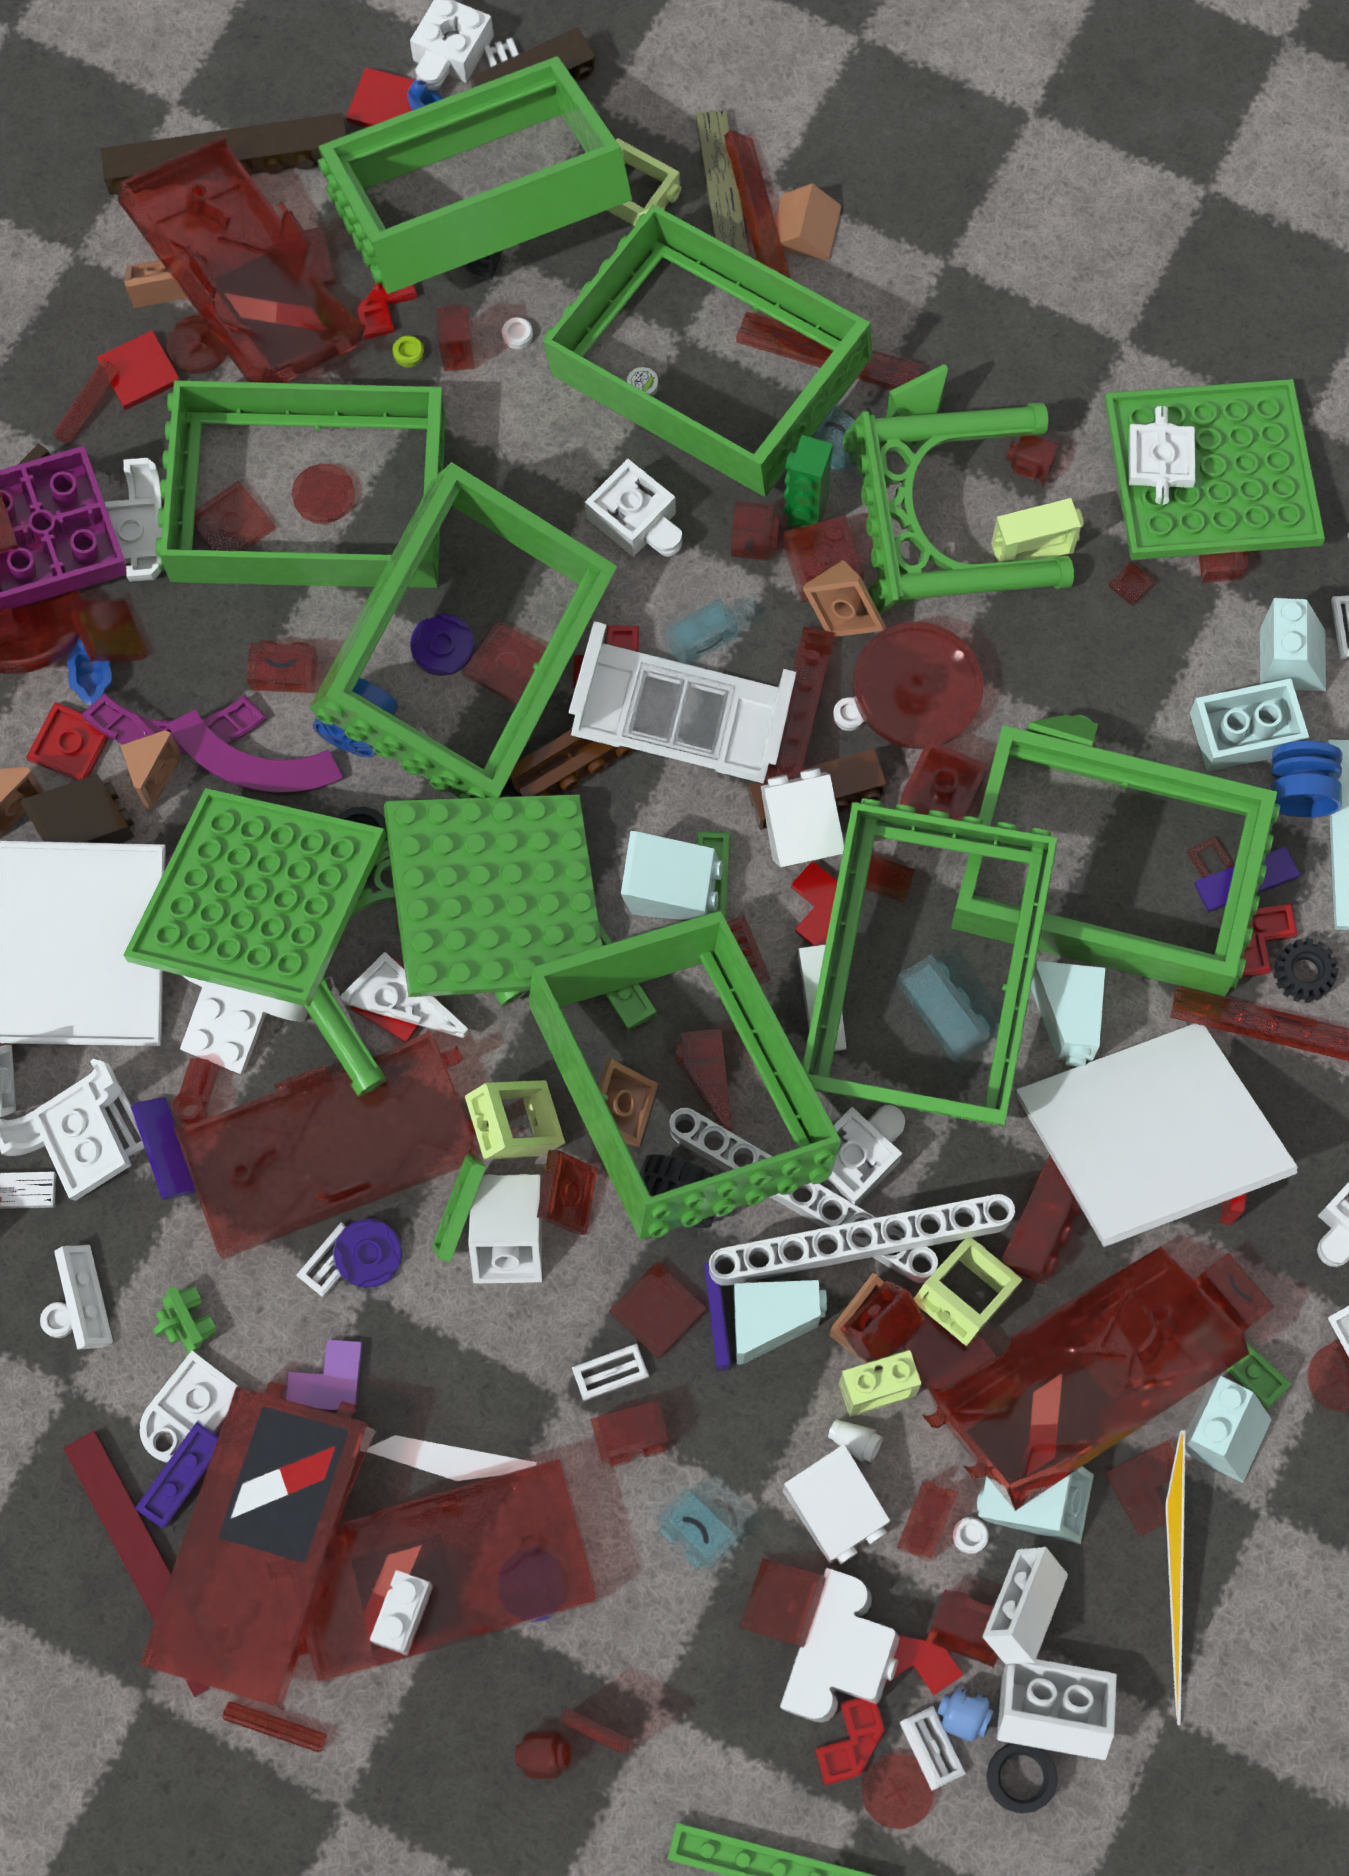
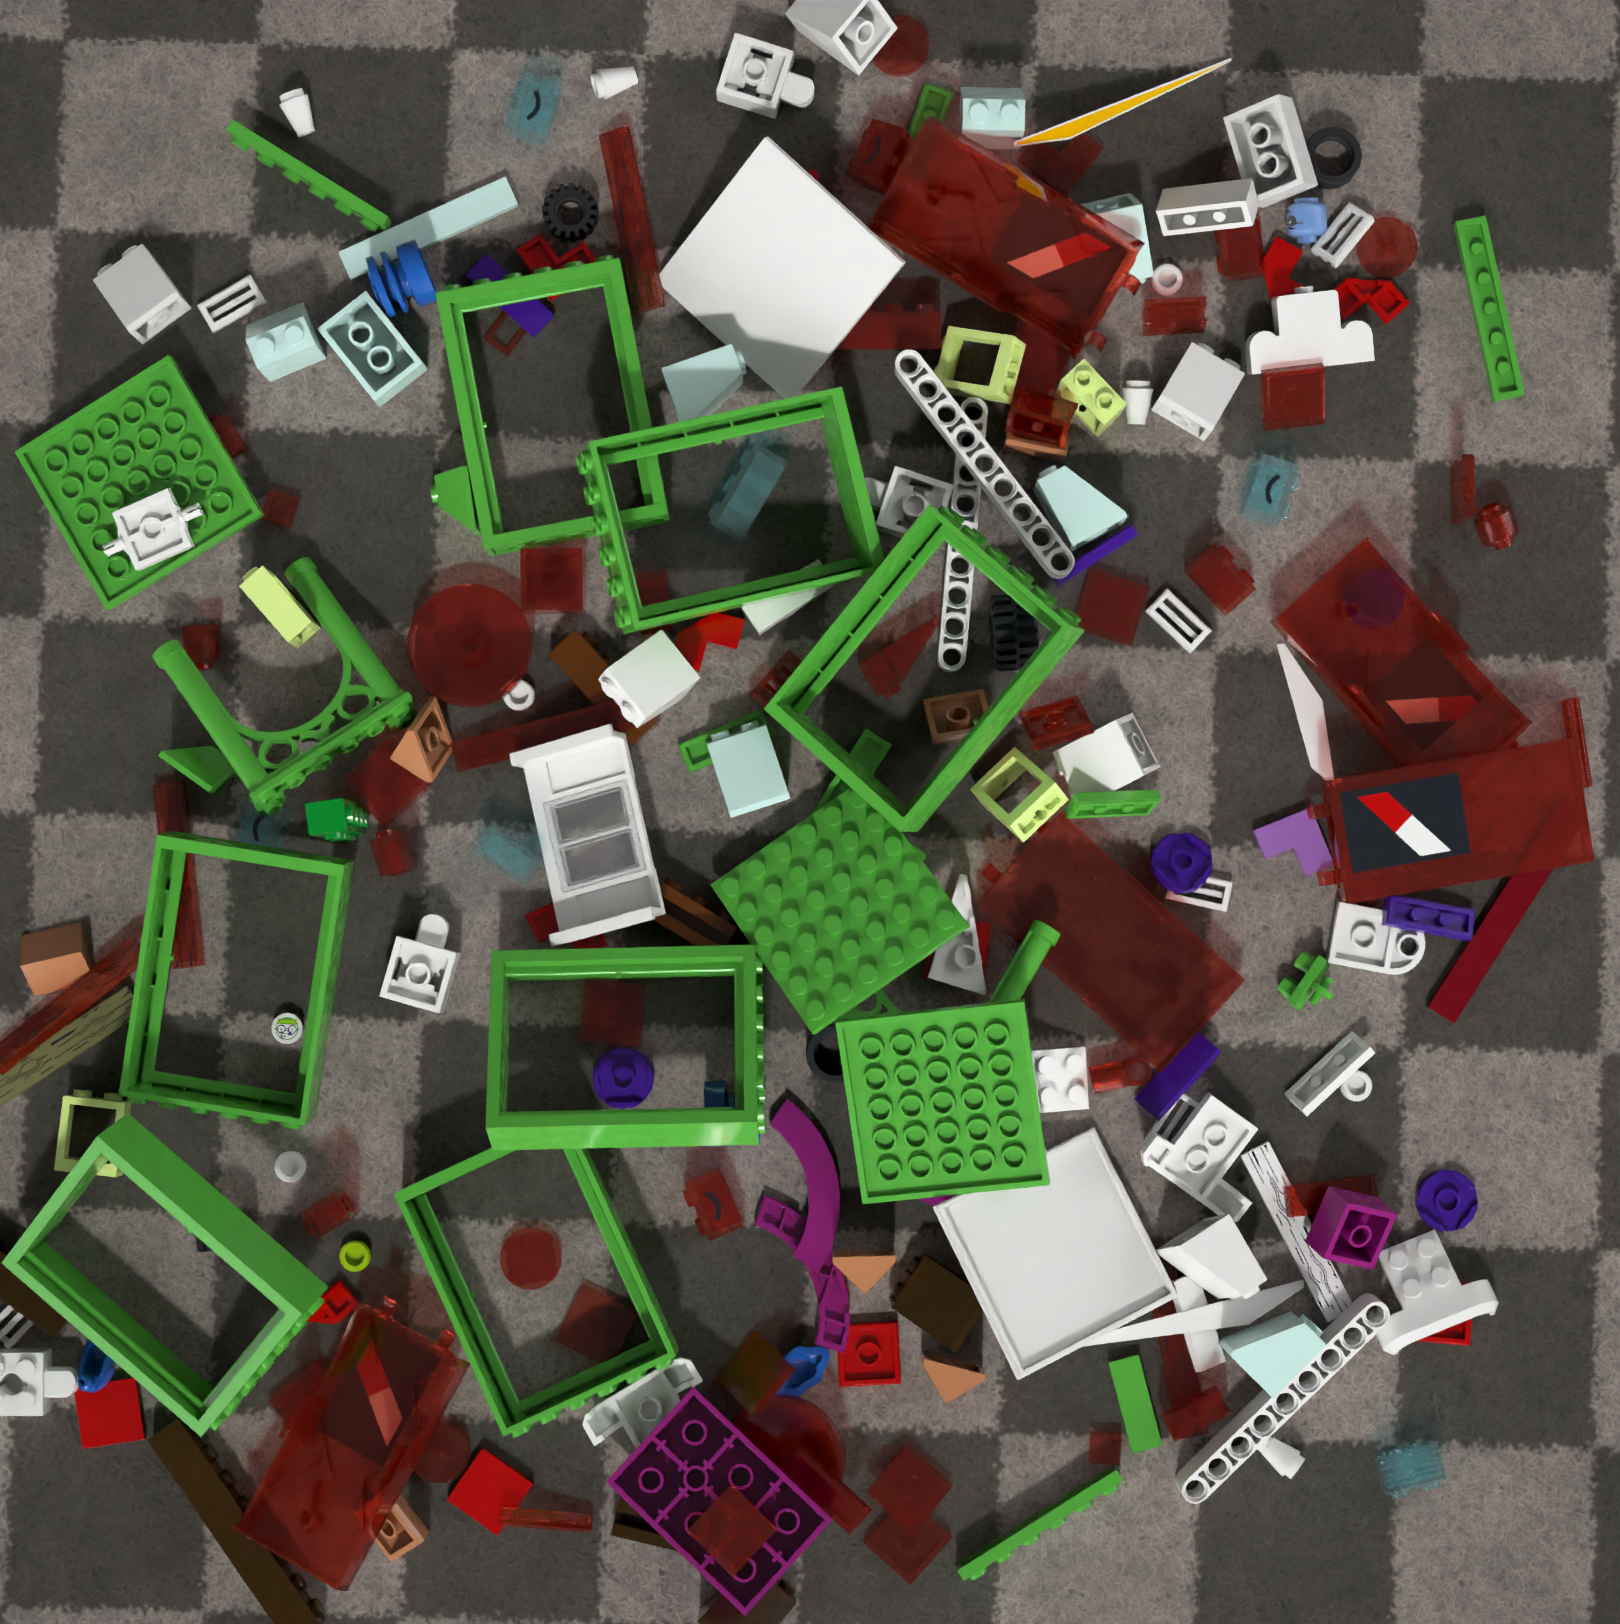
camera: 120 degrees left, 15 degrees up
(401, 1612) = (1450, 684): white brick -> none

